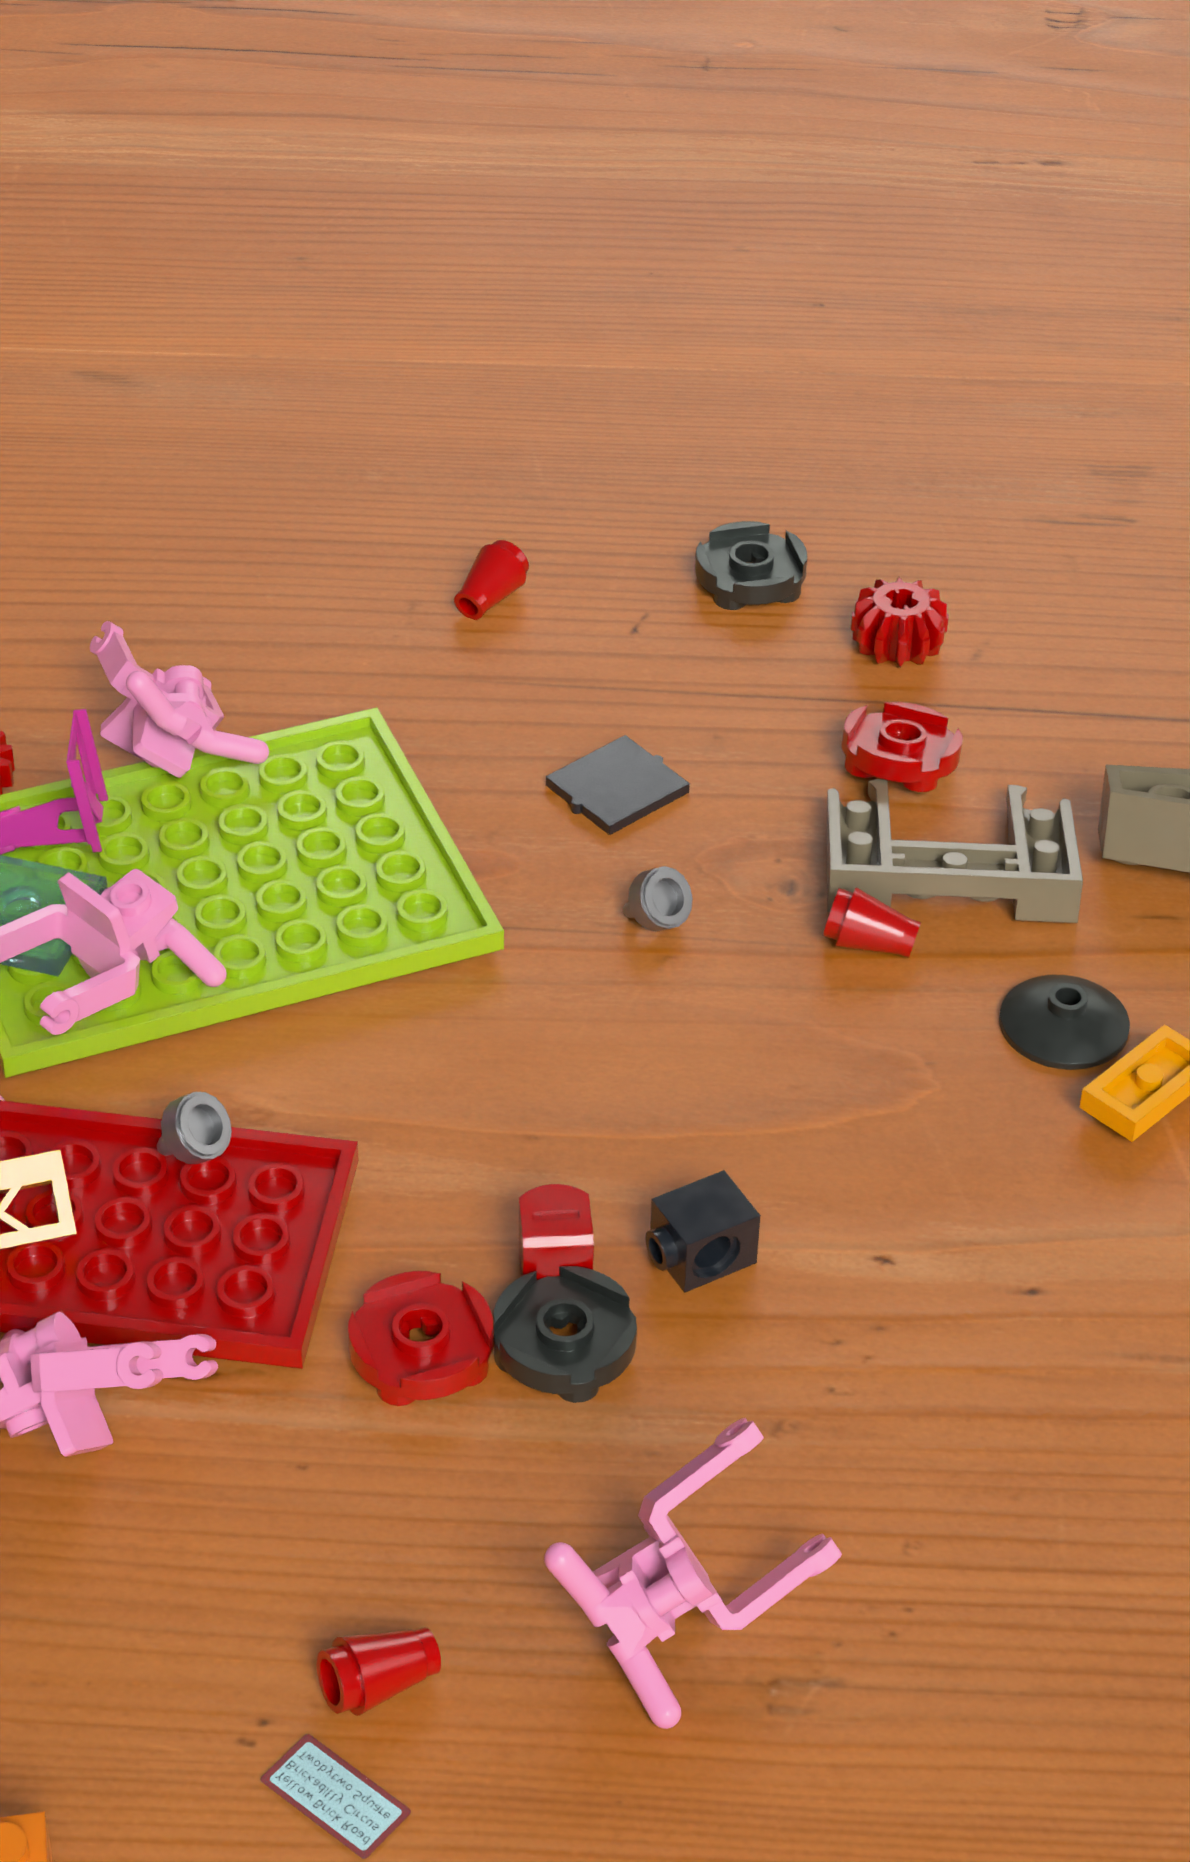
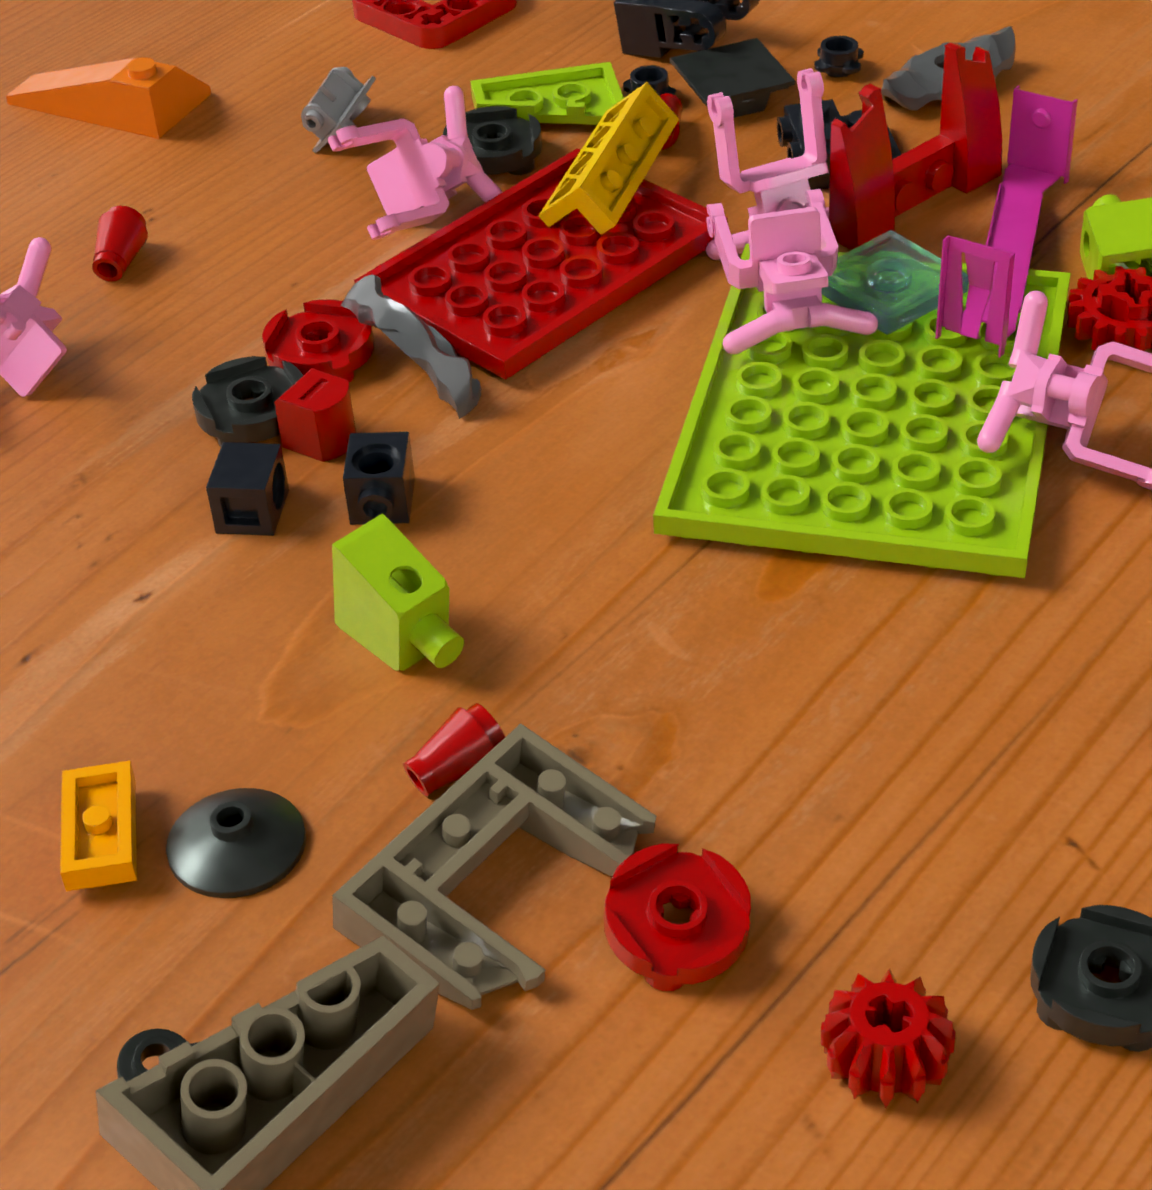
camera: 130 degrees right, 0 degrees up
(194, 1128) = (569, 272): flat silver tile -> none
(336, 1796) = (69, 226): clear light blue sticker -> none
(370, 1235) = (417, 340): none -> dark grey piece
(606, 1142) = (379, 477): none -> black brick
(617, 784) = (816, 704): piece -> none
(659, 899) = (614, 631): flat silver tile -> none
(768, 1002) = (392, 598): none -> lime torso

